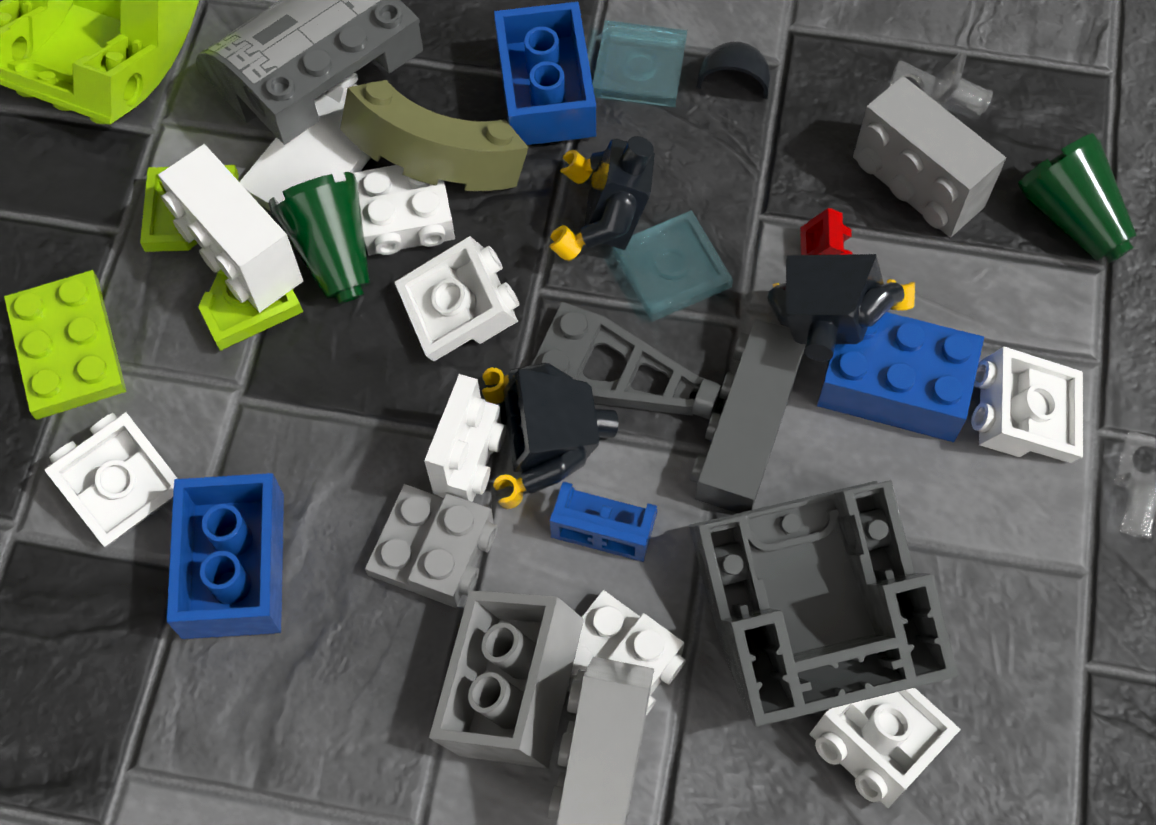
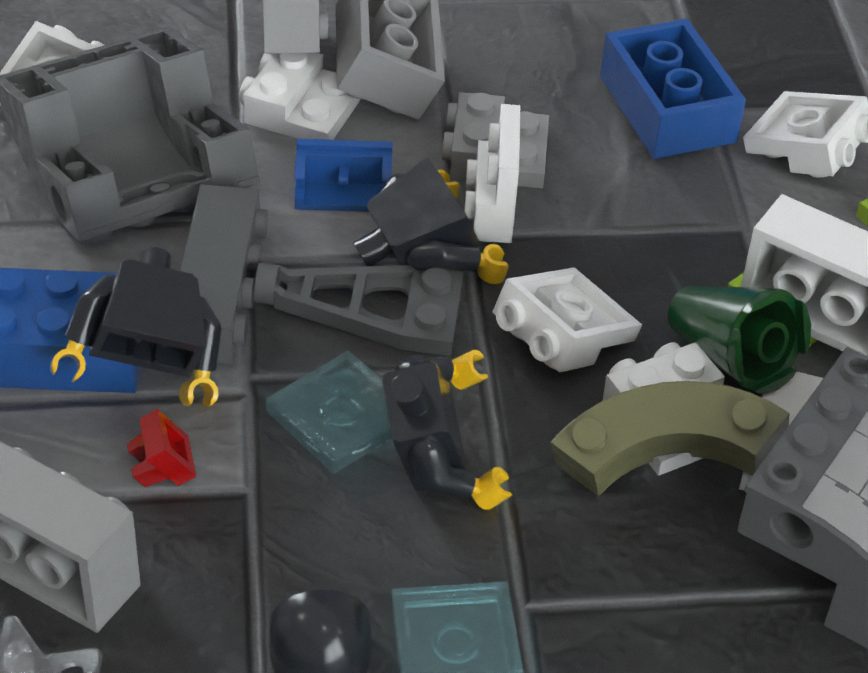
camera: 160 degrees right, 20 degrees down
(546, 73) = (573, 561): blue brick -> none

